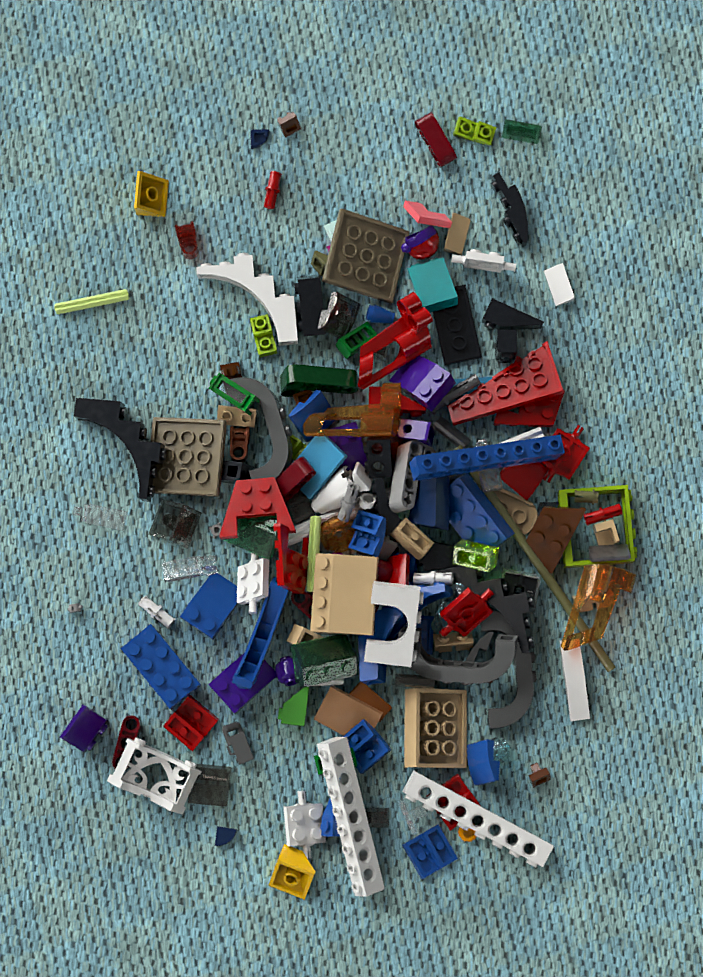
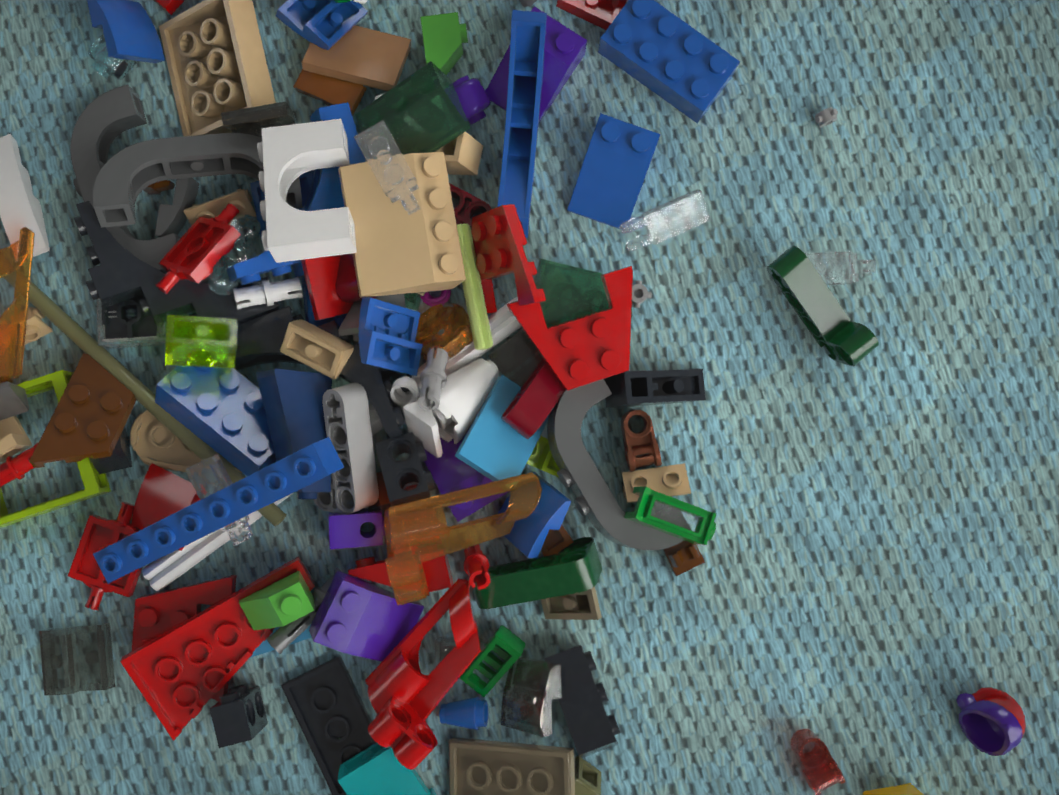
camera: 165 degrees right, 5 degrees up
(82, 238) = (991, 720): none -> dark purple piece
(92, 301) = (942, 615): yellowish green axle -> none
(114, 491) = (819, 308): none -> dark green beam
(131, 433) = (816, 406): black arch -> none
(156, 612) = (697, 142): white pin -> none
(175, 523) = (706, 285): clear smoke slope -> none
(192, 457) = (718, 396): dark tan tile -> none
(241, 274) = (671, 711): white arch -> none
(253, 582) = (557, 218): white plate -> none
(263, 335) = (647, 630): lime slope -> none
(302, 358) = (573, 606): none -> dark tan slope
(342, 624) = (389, 165): none -> clear hinge
(351, 393) = (477, 567): none -> red axle
(451, 433) = (300, 544): flat silver slope -> none
(467, 400) = (278, 603): none -> bright green slope
(505, 317) = (257, 763): black slope -> none
(538, 775) = (40, 37): reddish brown tile -> none
(588, 496) = (37, 491): olive pin -> none
(596, 400) = (77, 659): none -> clear smoke slope

